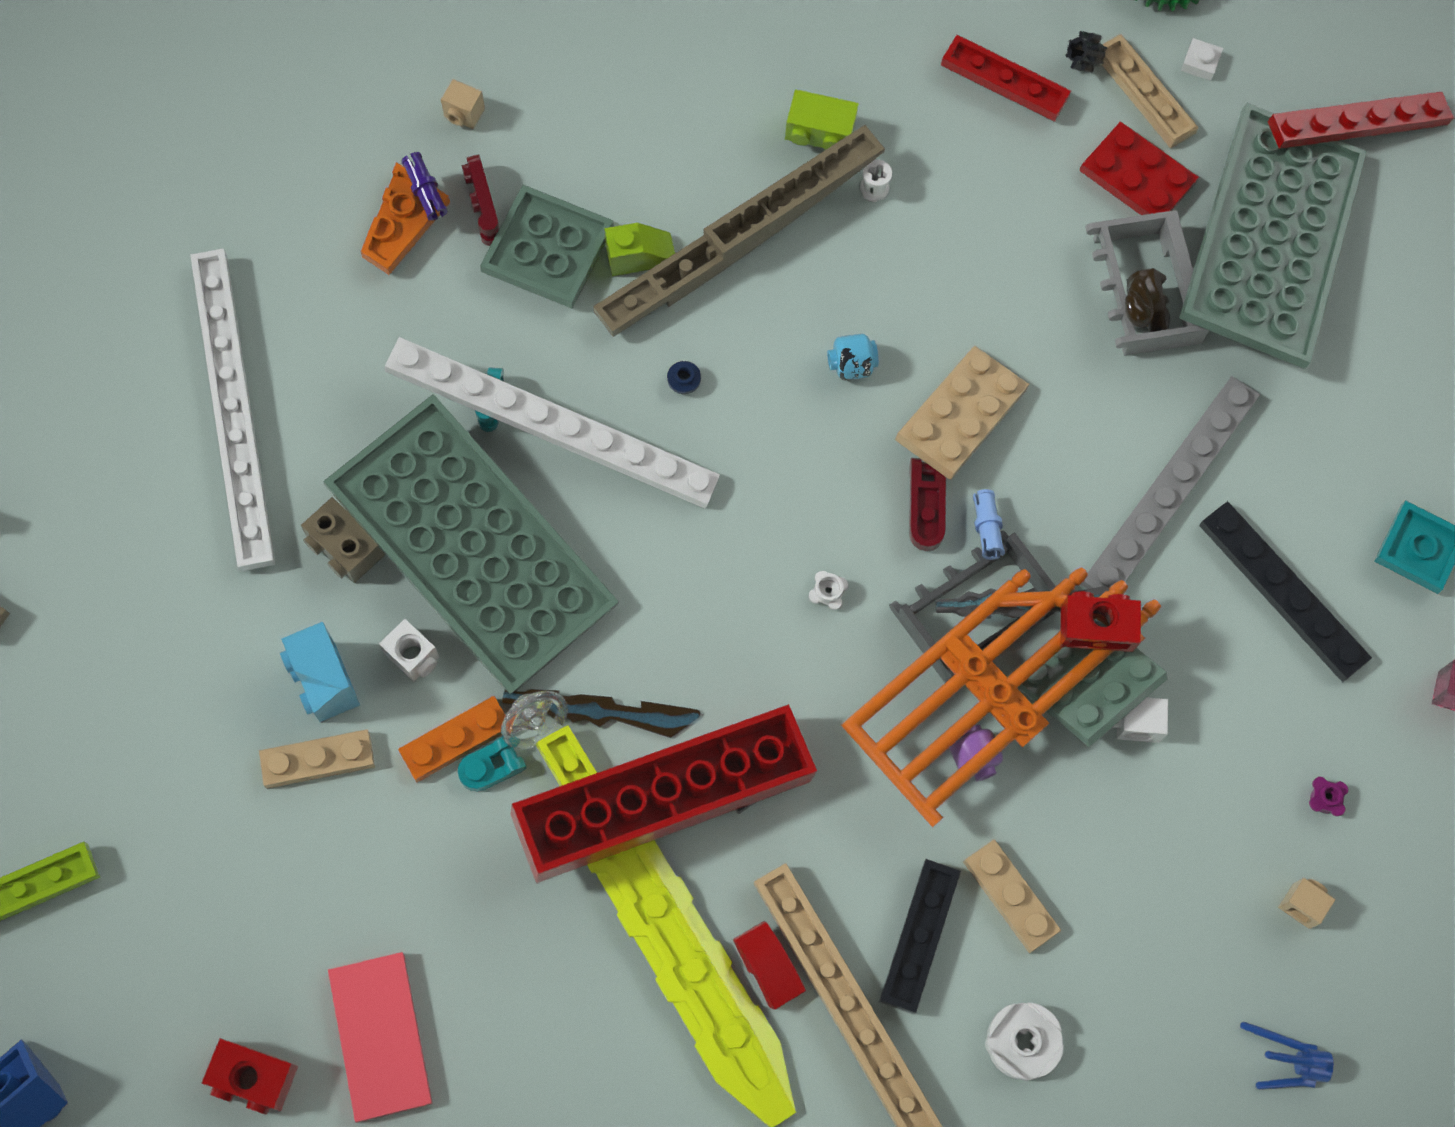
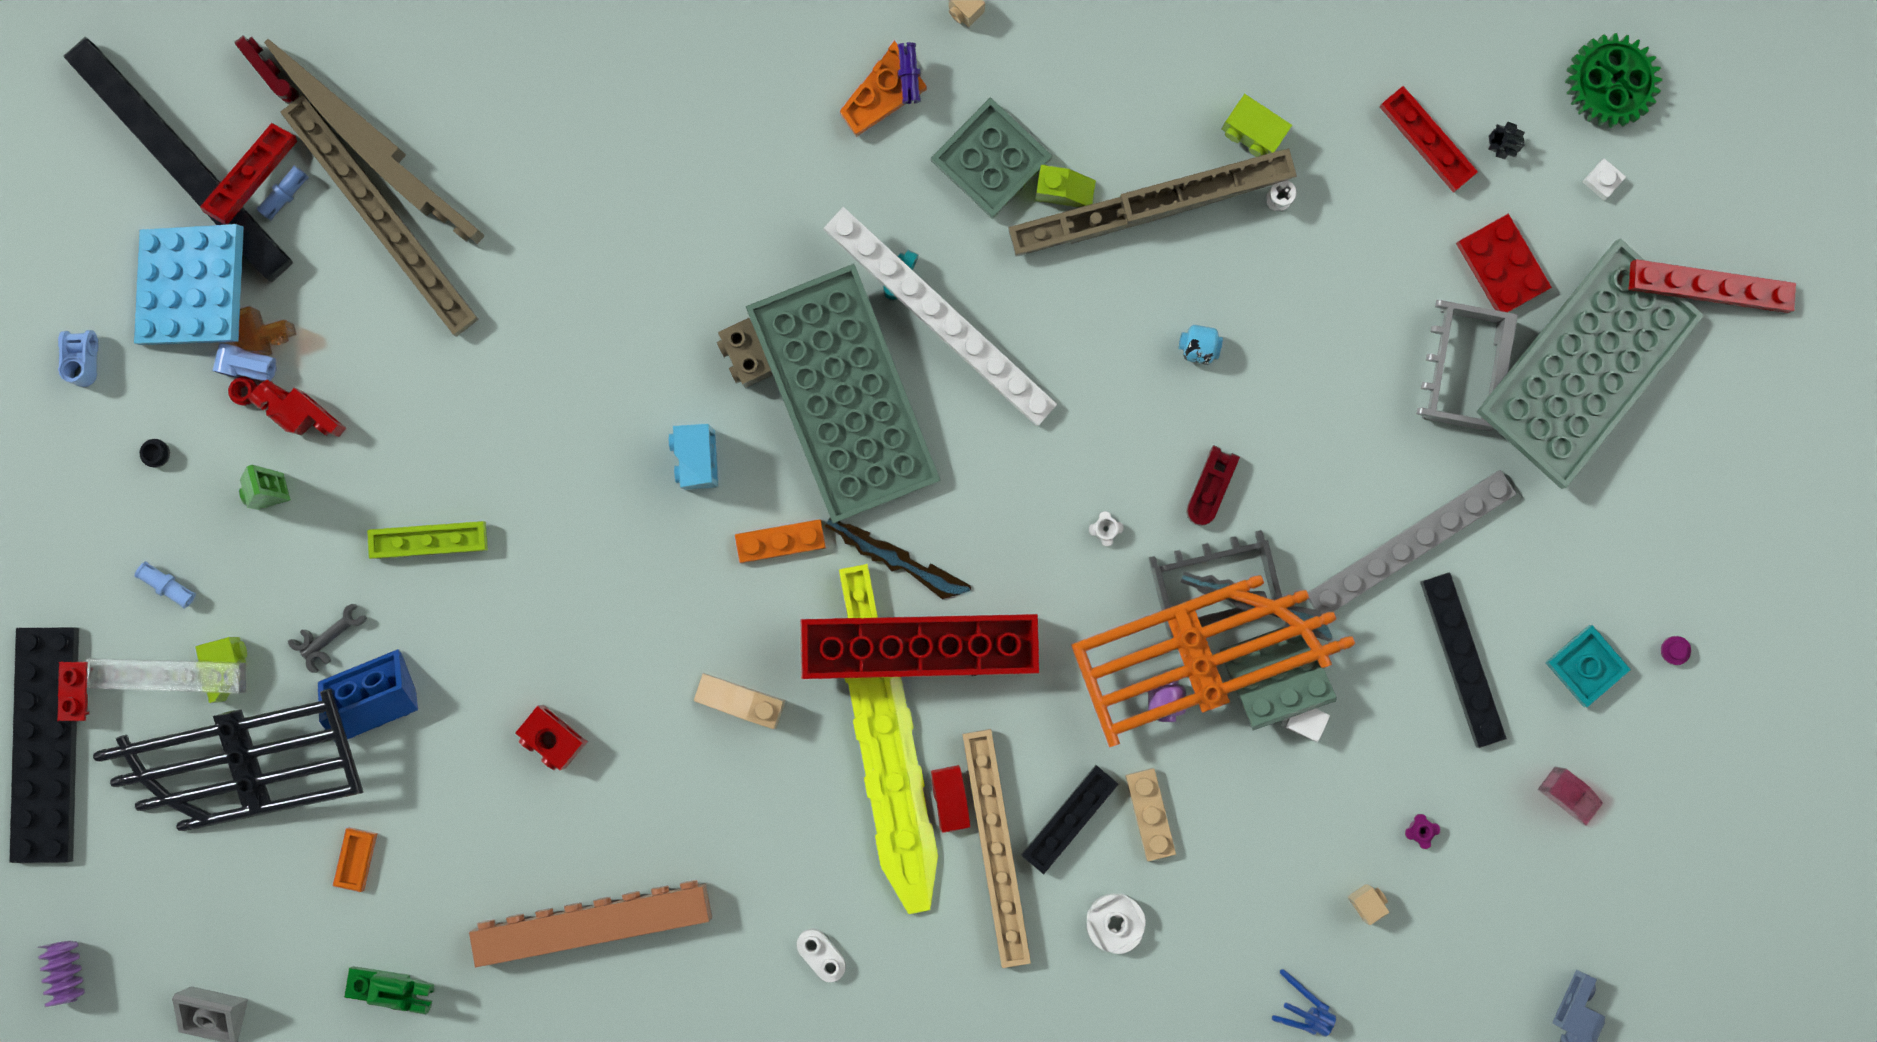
camera: 25 degrees right, 15 degrees up
(232, 411) = (696, 209): white plate -> none
(316, 759) = (672, 518): tan plate -> none
(379, 1037) = (652, 743): coral tile -> none
(401, 639) = (761, 451): white brick -> none
(471, 942) = (739, 701): none -> tan slope
(478, 772) = (788, 571): teal plate -> none
(481, 198) = (952, 97): dark red plate -> none
(529, 713) = (841, 546): clear piece -> none
(684, 386) = (1059, 320): dark blue plate -> none
(962, 412) = (1269, 422): tan plate -> none
(988, 524) = (1251, 523): light blue pin -> none
(1081, 631) = (1282, 638): red brick -> none
(1145, 300) = (1457, 385): dark brown animal -> none
(1147, 92) = (1543, 192): tan tile -> none

